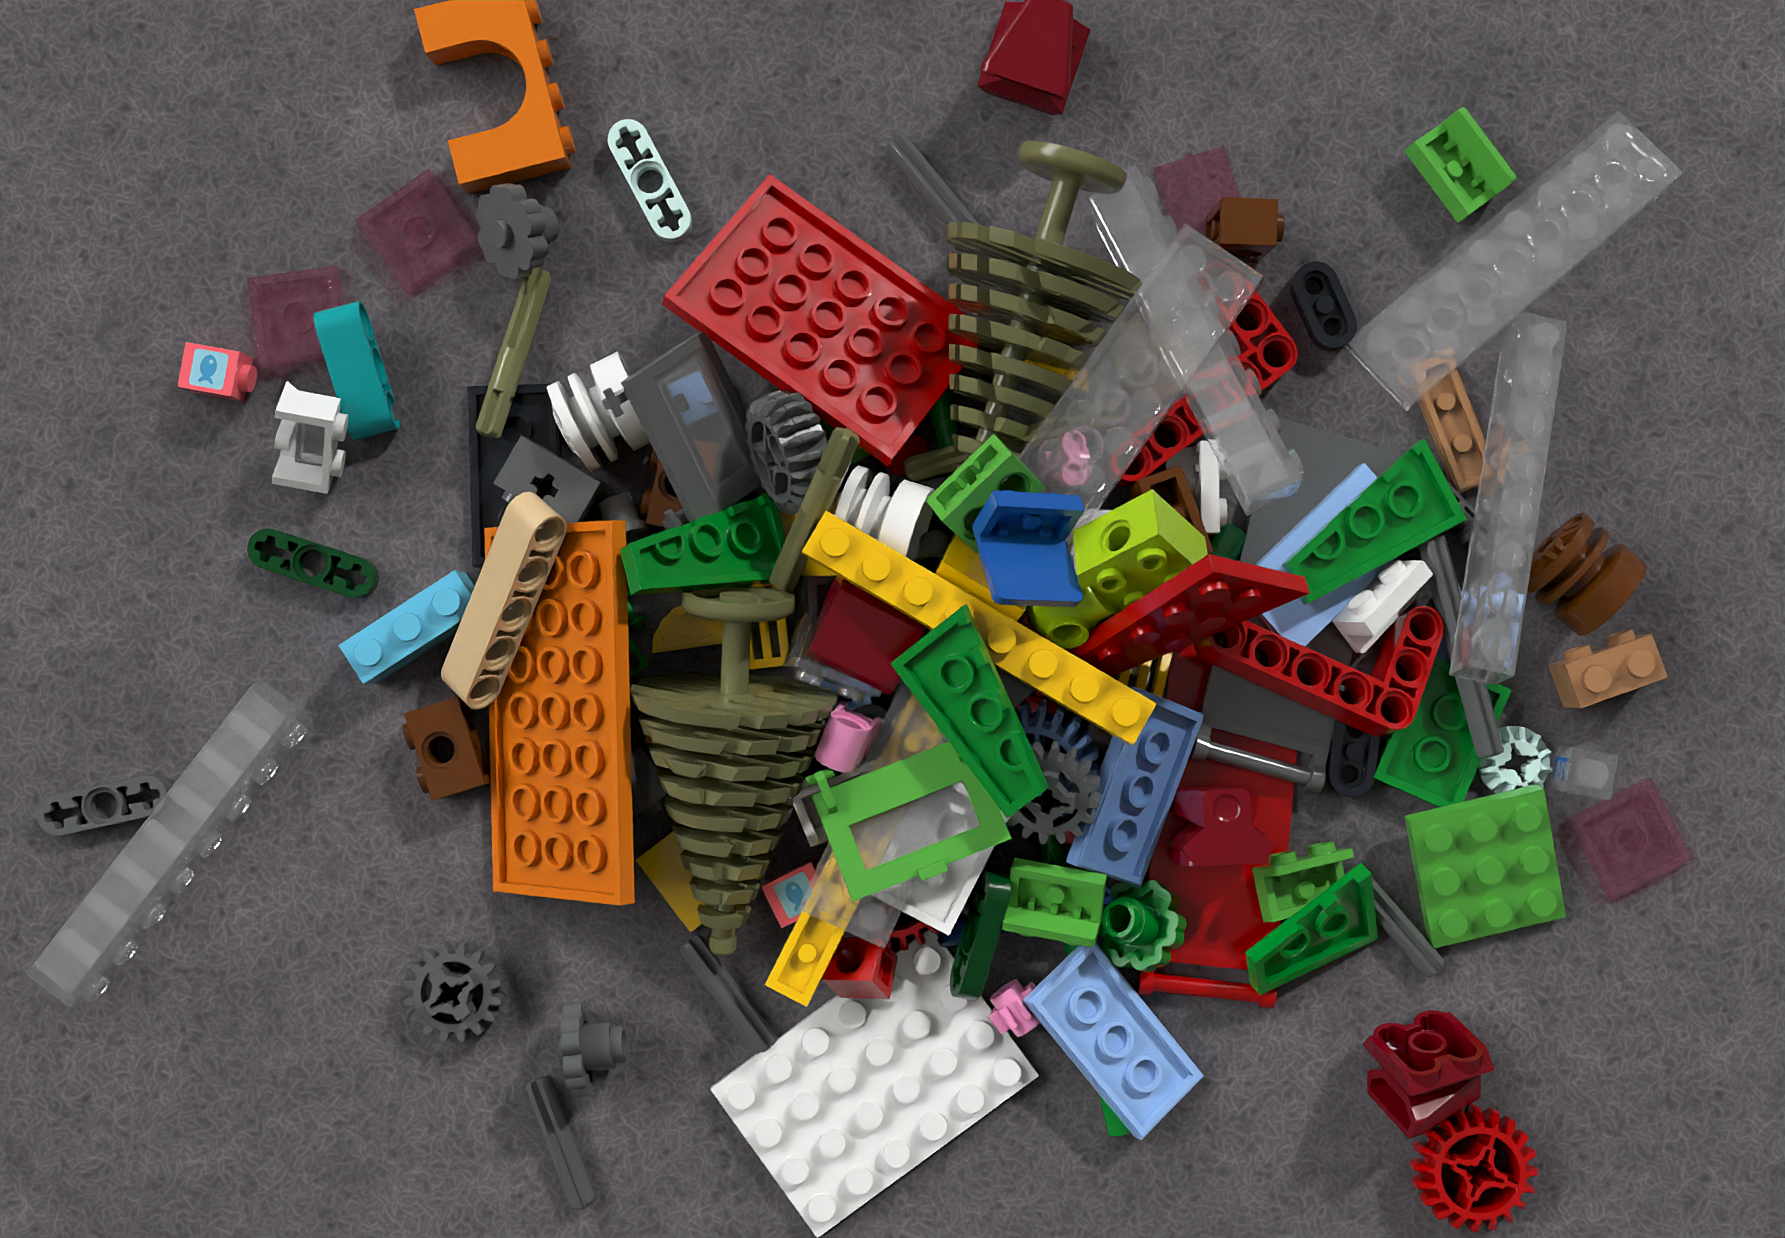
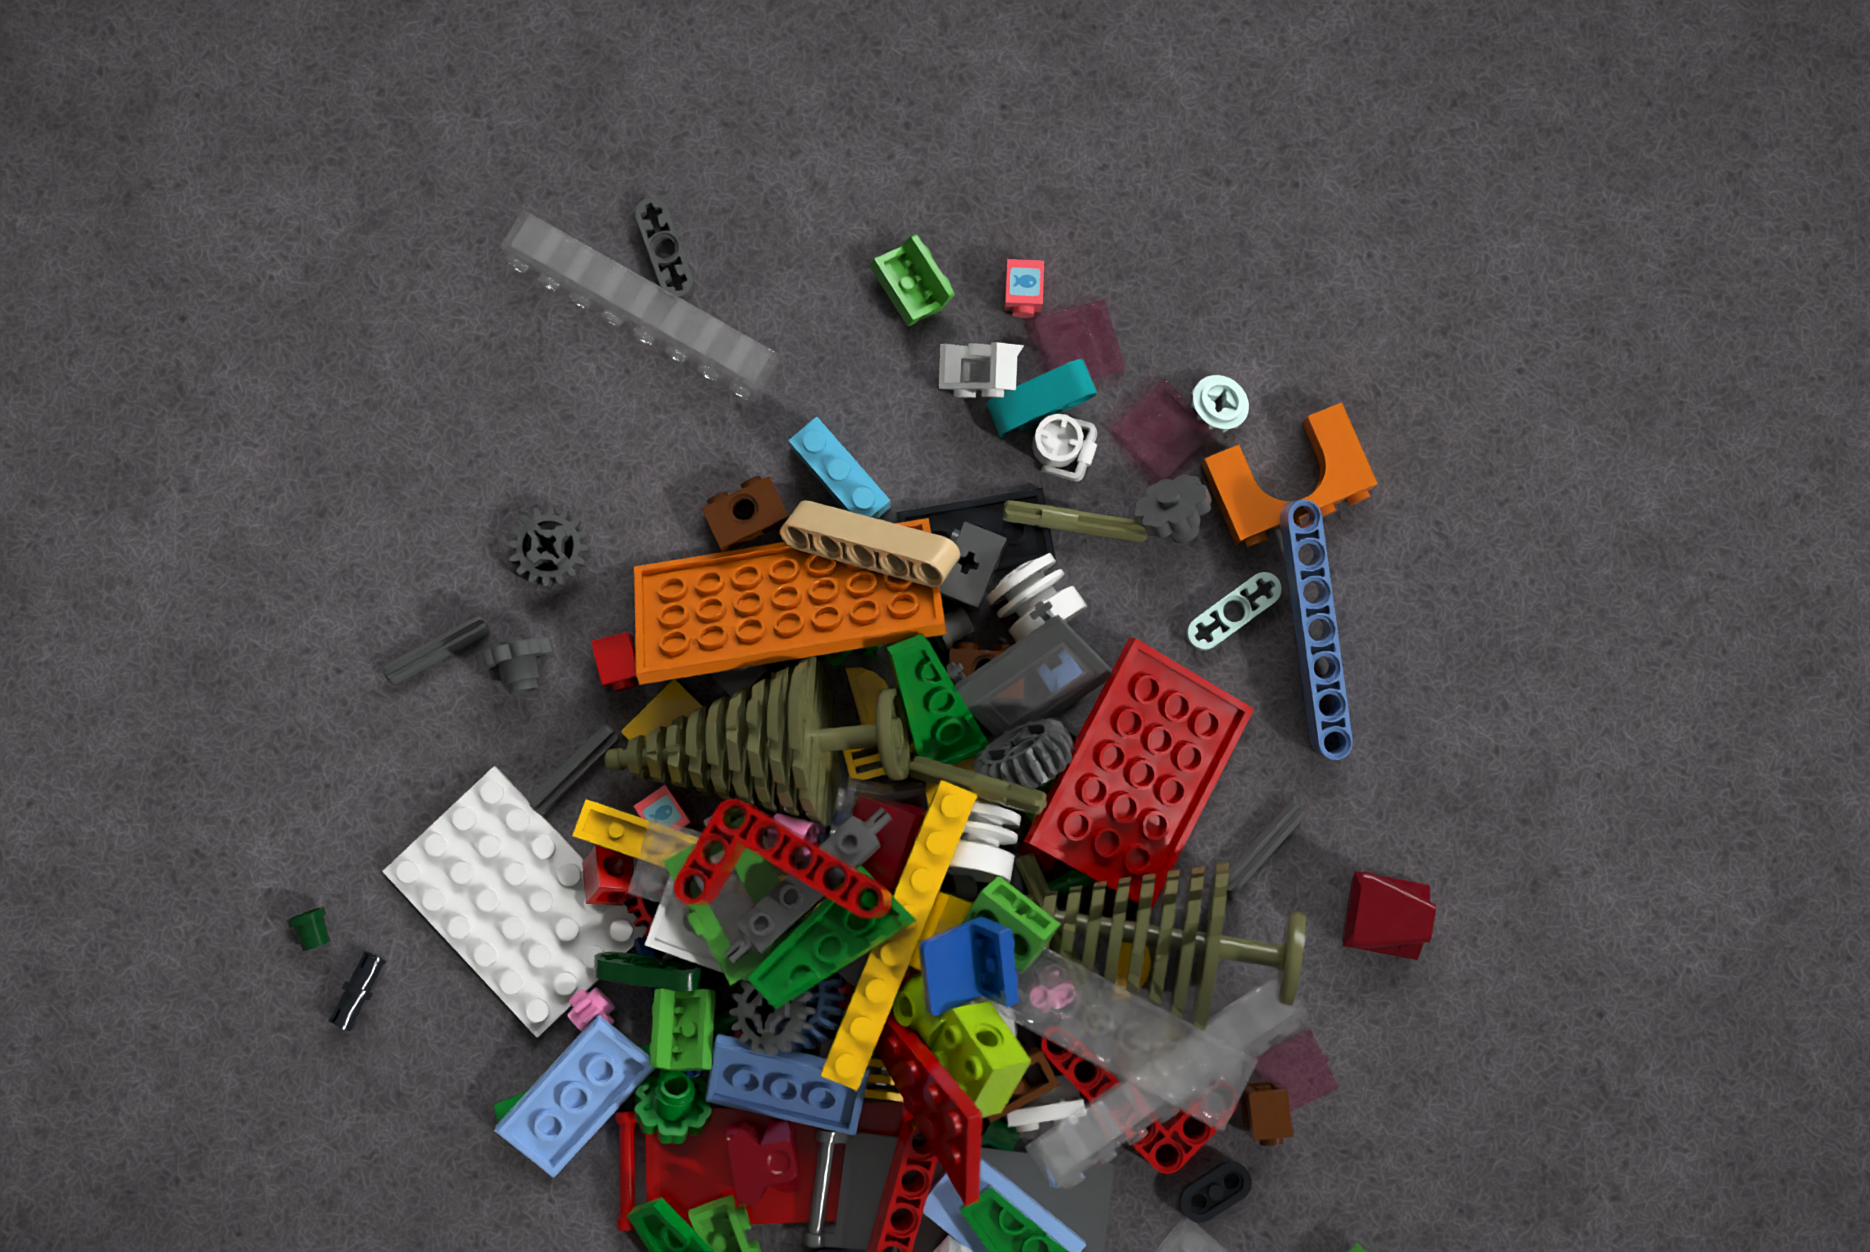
camera: 80 degrees right, 5 degrees down
(189, 506) = (912, 280): none -> bright green bracket
(278, 564) = (895, 359): dark green beam -> none
(394, 141) = (1233, 400): none -> light aqua gear
(414, 357) = (1060, 441): none -> white piece
(604, 927) = (616, 661): none -> red brick
(663, 93) = (1325, 646): none -> medium blue beam
(865, 755) = (782, 854): none -> red beam
(905, 729) = (794, 899): none -> dark grey plate

